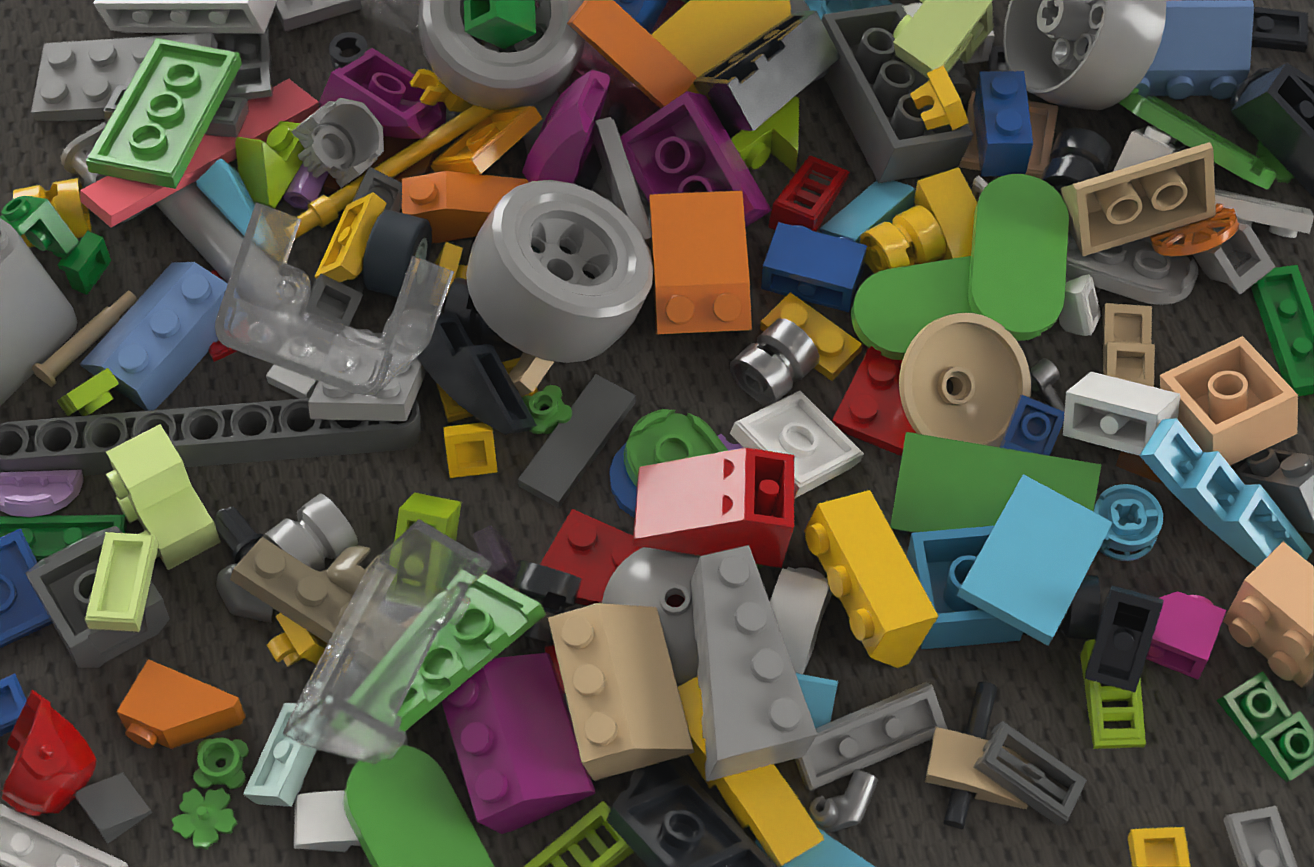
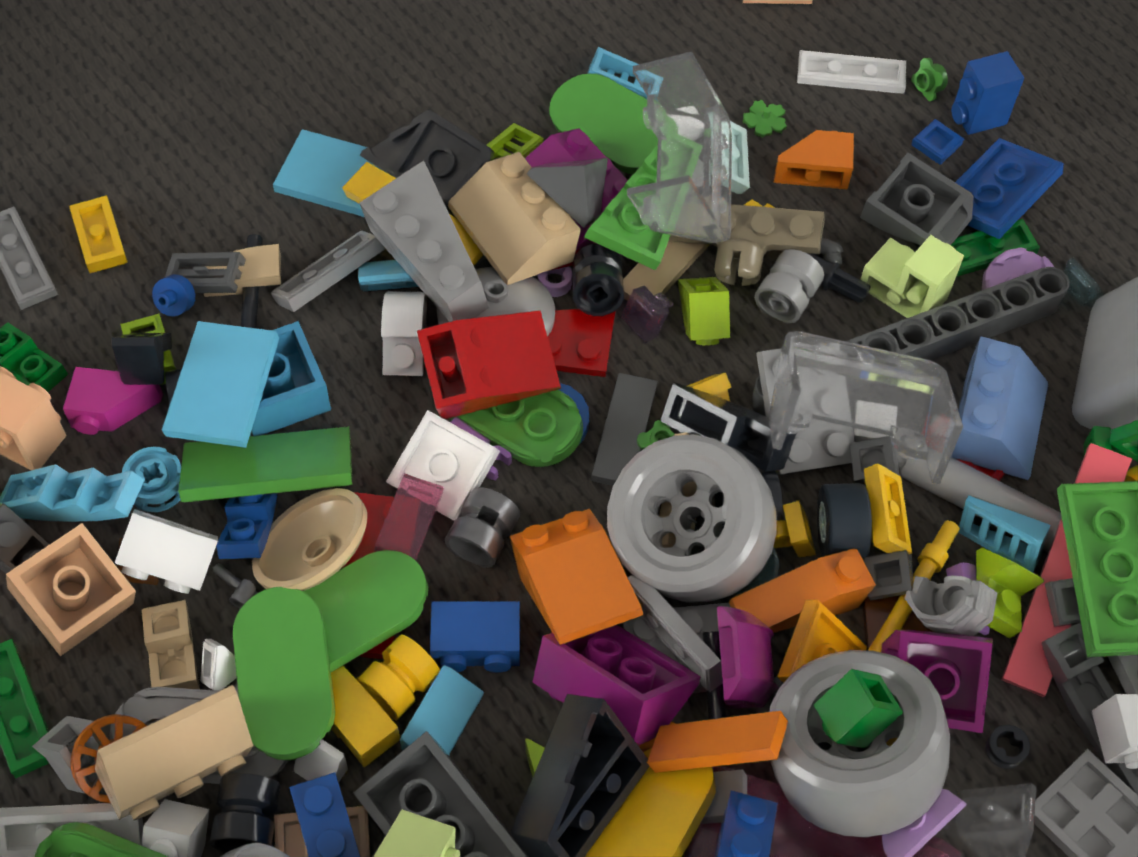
camera: 160 degrees right, 0 degrees up
(49, 760) = (879, 100): red helmet -> none
(83, 339) = (1060, 394): tan piece -> none
(90, 394) = (1017, 326): lime plate -> none
(112, 806) = (828, 102): dark grey slope -> none
(122, 582) = (899, 198): yellowish green tile -> none
(217, 749) = (767, 137): bright green plate -> none
(534, 690) = (574, 186): none -> dark grey slope
(793, 214) = (510, 685): red slope -> none
(833, 344) = (461, 576): yellow plate -> none
(846, 809) = (334, 226): flat silver arm -> none
(851, 384) = (409, 516): none -> clear pink tile
(871, 577) = (355, 341): yellow slope -> none
(946, 101) = (386, 796): yellow tile -> none
(1076, 749) = (173, 295): none -> blue tile

